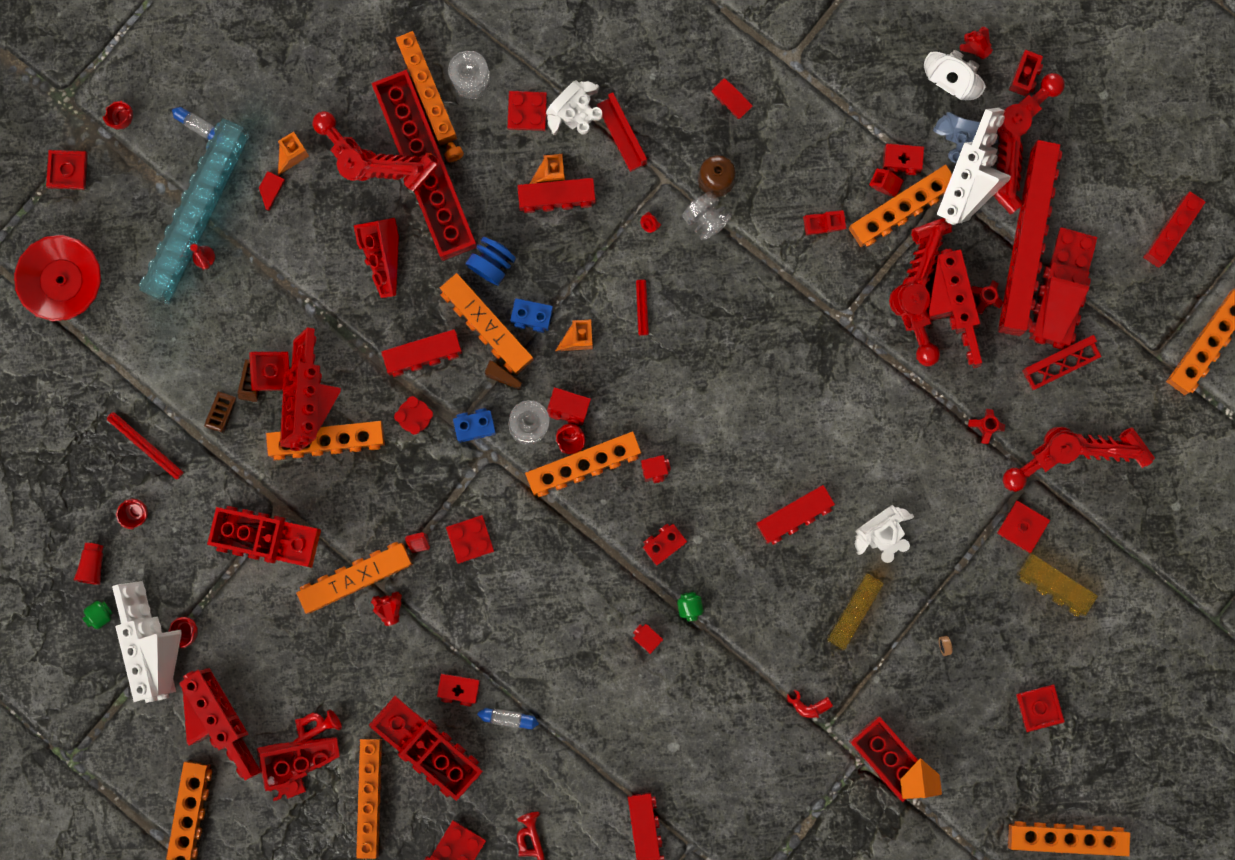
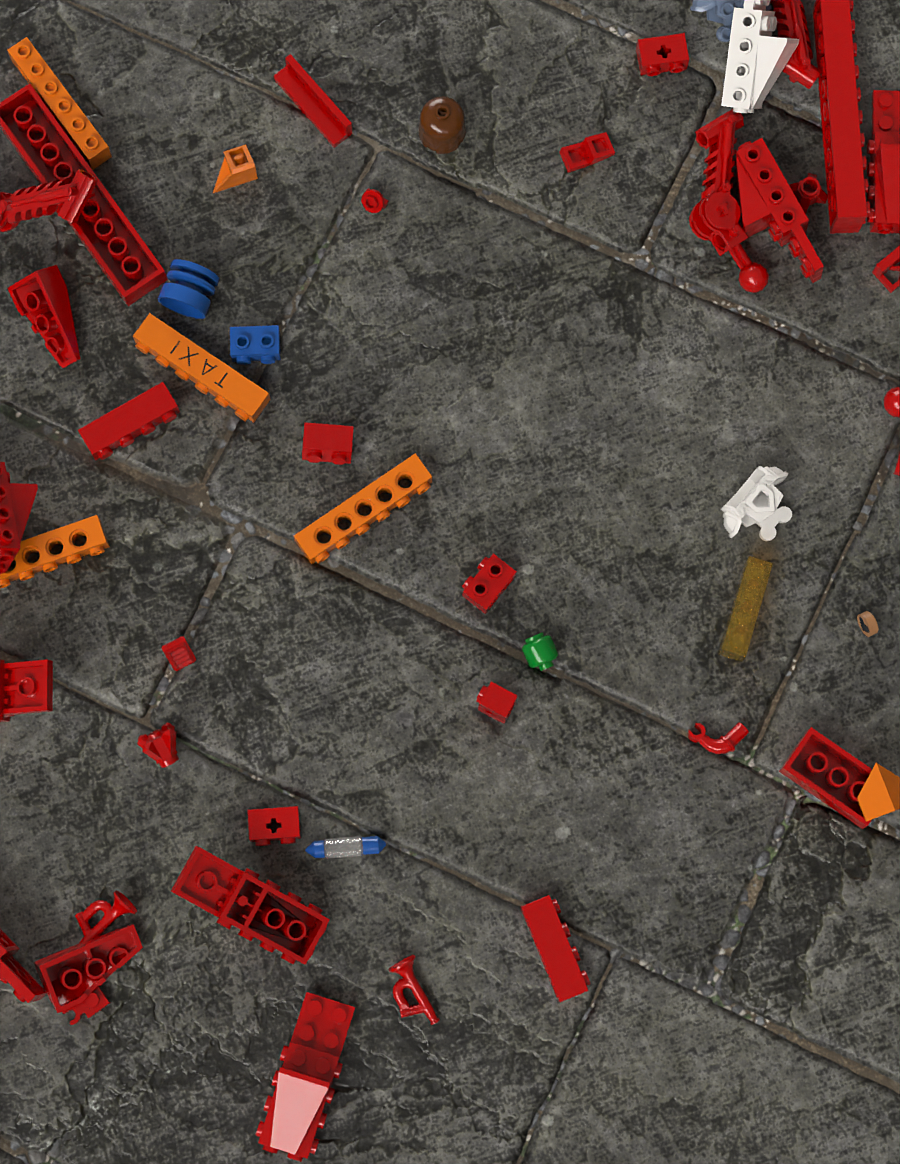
camera: 20 degrees left, 5 degrees down
(354, 578) = (109, 718): orange brick -> none
(369, 798) = (193, 990): orange brick -> none
(413, 415) = (137, 500): red piece -> none
(453, 153) = (111, 172): orange tile -> none
(469, 74) = (109, 73): clear wheel -> none
(470, 539) = (244, 636): red plate -> none
(474, 426) = (216, 494): blue brick -> none
(498, 374) = (231, 425): reddish brown slope -> none
(527, 110) = (190, 103): red plate -> none
(530, 411) = (283, 473): clear wheel -> none
(556, 194) = (251, 193): red brick -> none
(570, 438) = (339, 481): red hair -> none
(573, 108) = (245, 84): white piece -> none
(577, 337) = (319, 358): orange slope -> none
(642, 312) = (389, 304): red axle -> none
(655, 469) = (454, 492): red brick -> none
(704, 212) = (438, 171): clear wheel -> none
(731, 98) = (437, 31): red slope -> none
(795, 514) = (641, 508): red brick -> none
(860, 228) = (640, 156): orange brick -> none
(886, 182) = (649, 87): red brick -> none
(987, 425) = (848, 345): red rock -> none

